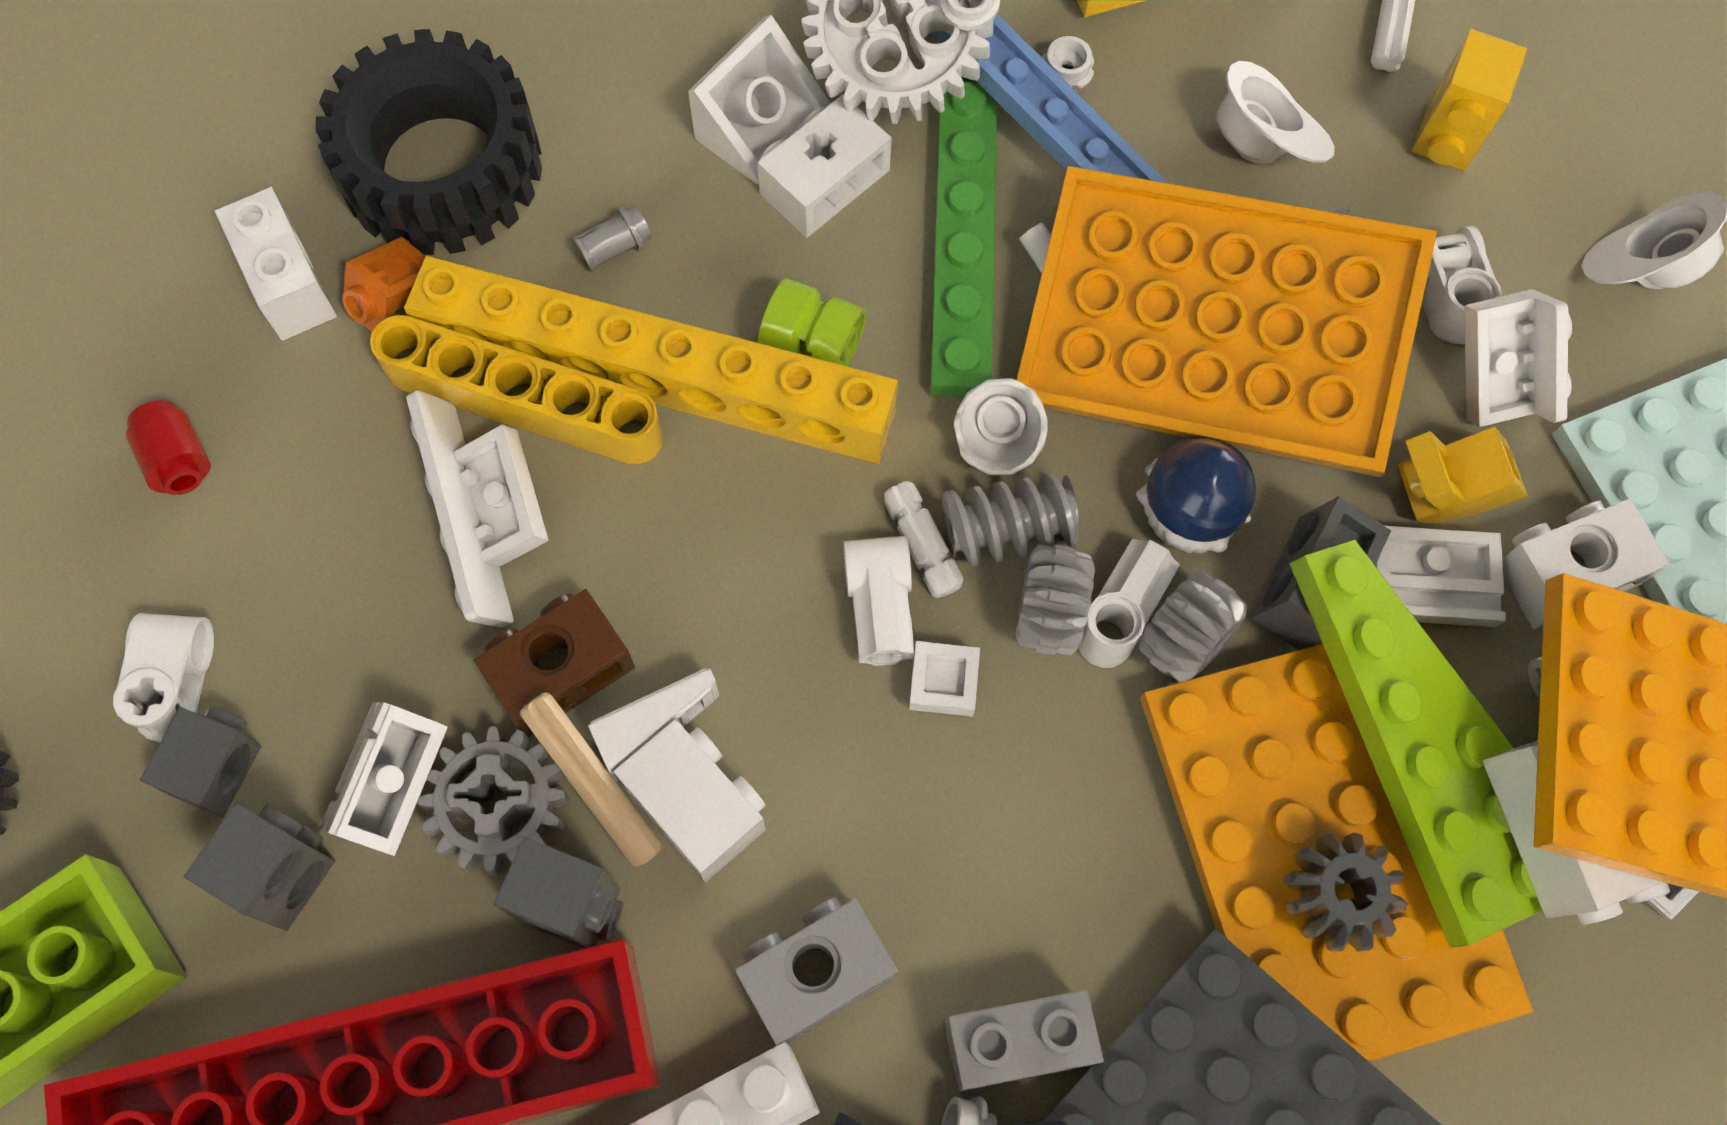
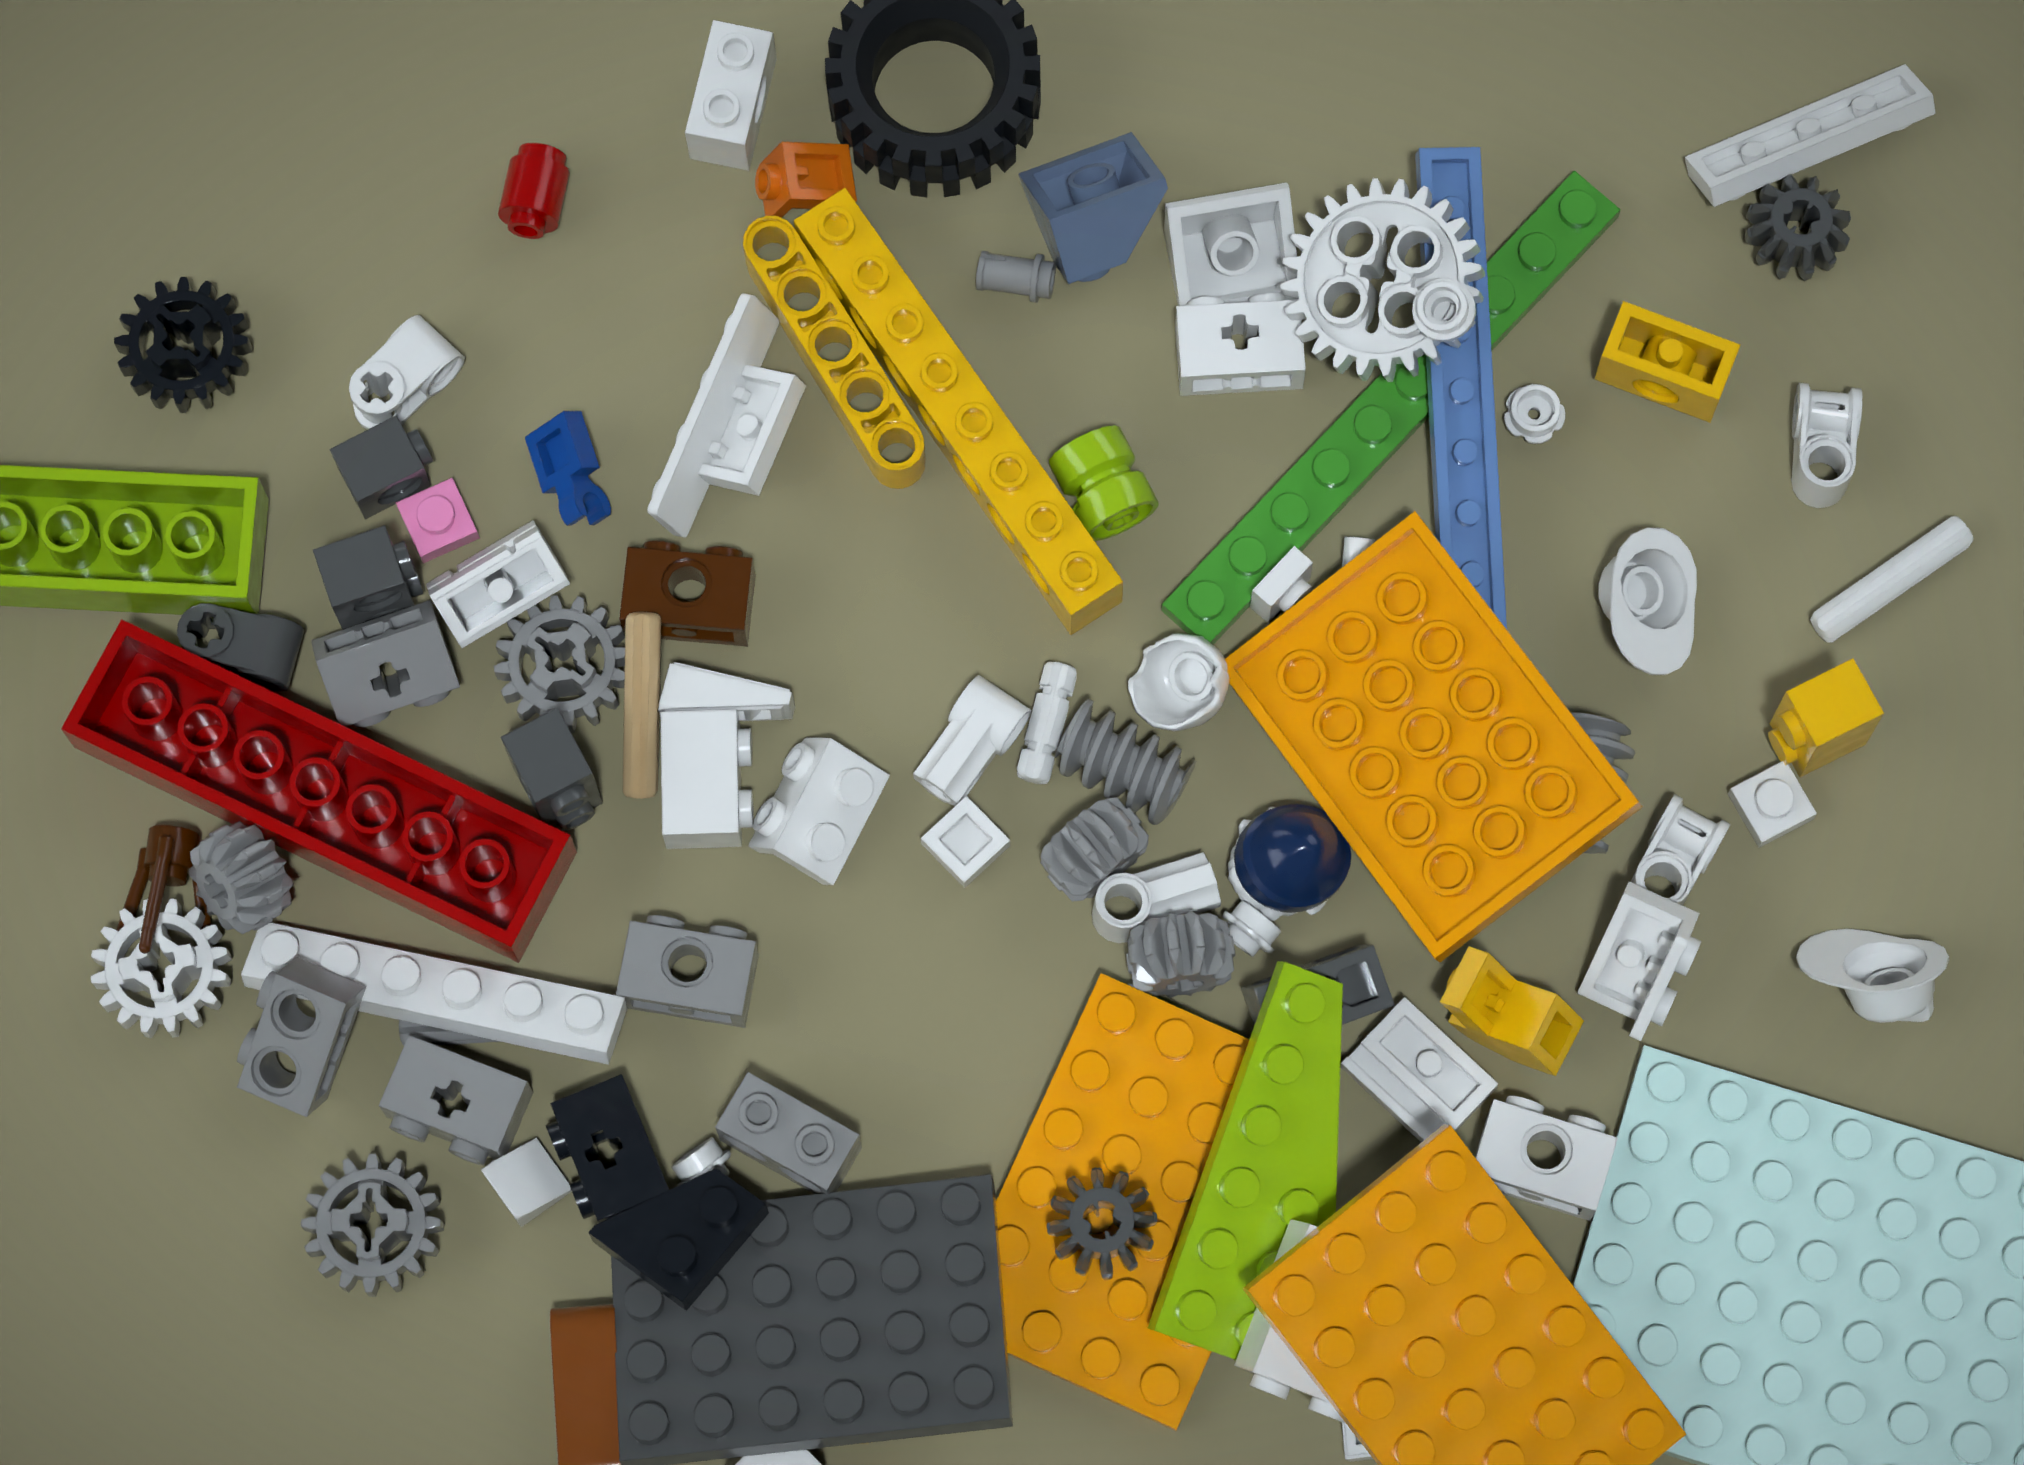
camera: 45 degrees right, 5 degrees up
(194, 1009) = (250, 644): none -> dark grey piece
(288, 768) = (437, 520): none -> bright pink plate
(324, 963) = (405, 638): none -> light grey brick
(363, 640) = (562, 462): none -> blue plate
(632, 146) = (1094, 205): none -> sand blue slope
(804, 747) = (818, 808): none -> white bracket
(1010, 303) = (1282, 585): none -> white plate
(1218, 563) = (1251, 929): none -> white plate
(1470, 197) = (1772, 804): none -> white plate

